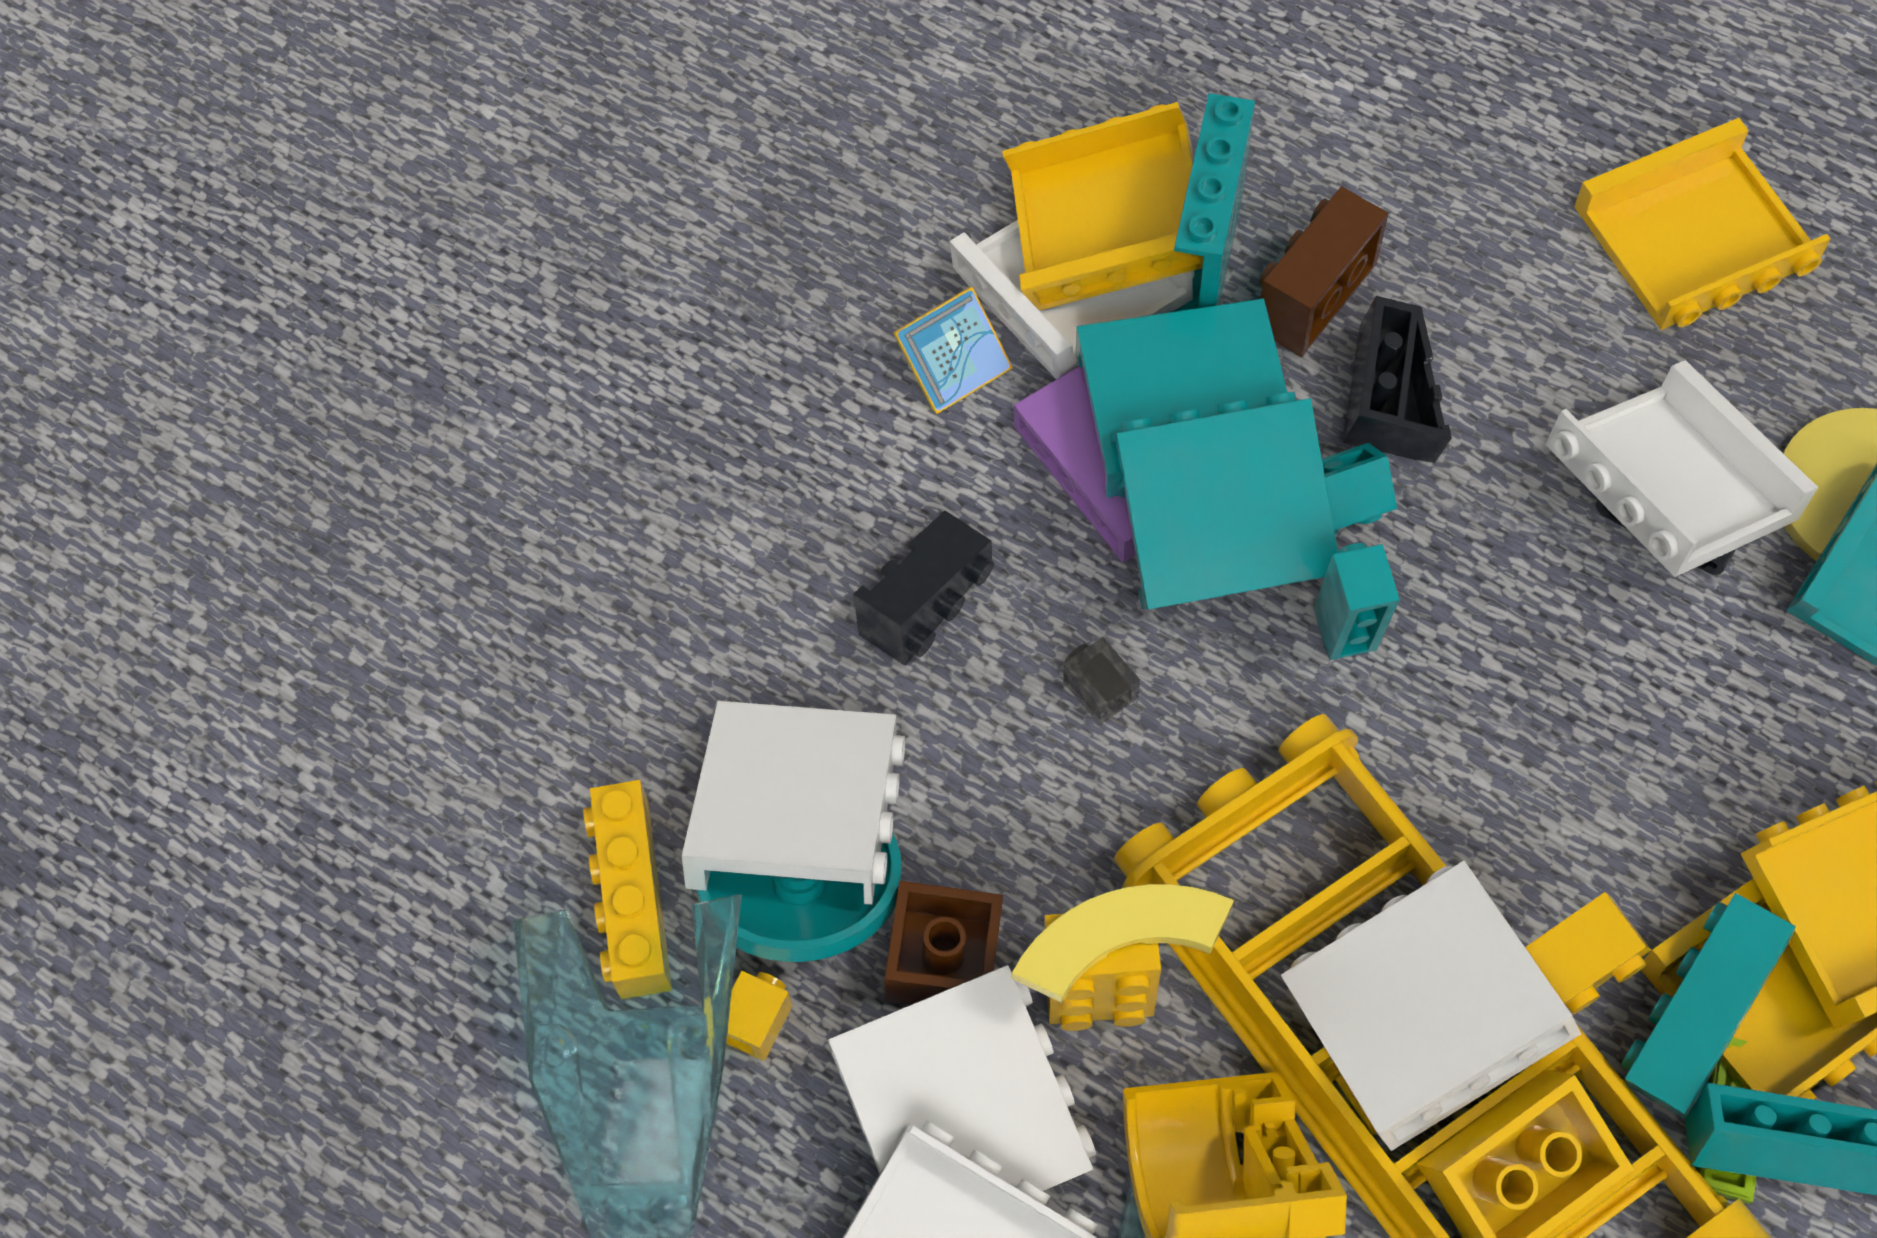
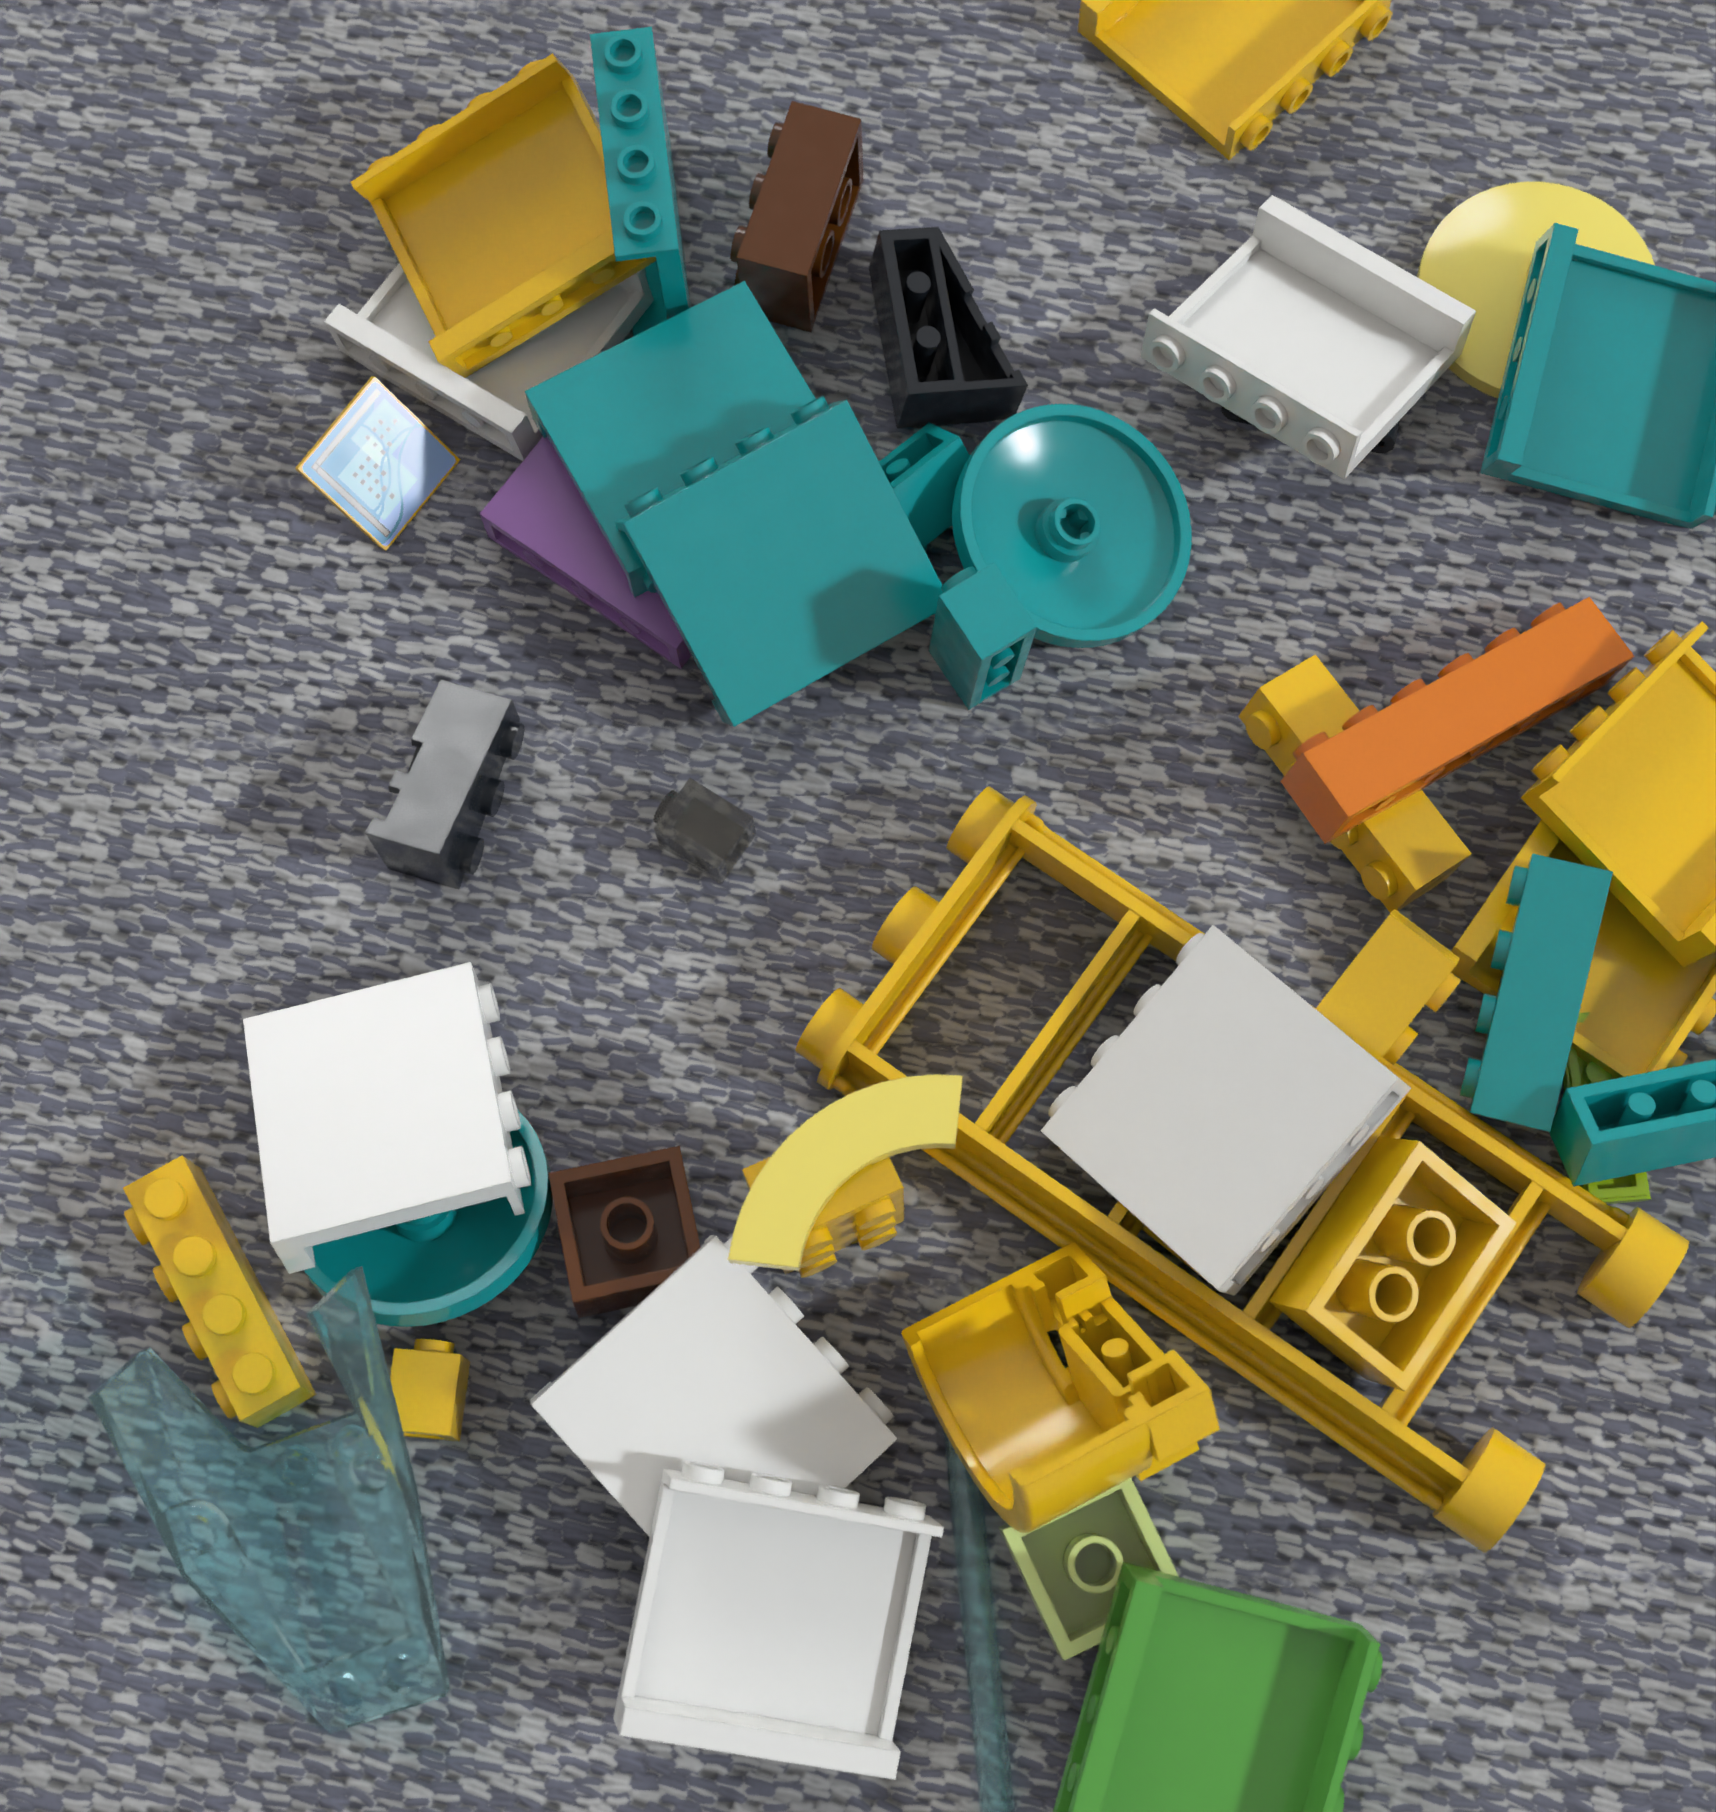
camera: 20 degrees left, 10 degrees up
(1458, 548) = (1075, 521): none -> teal dish
(1611, 806) = (1396, 851): none -> yellow brick
(1707, 779) = (1455, 718): none -> orange brick

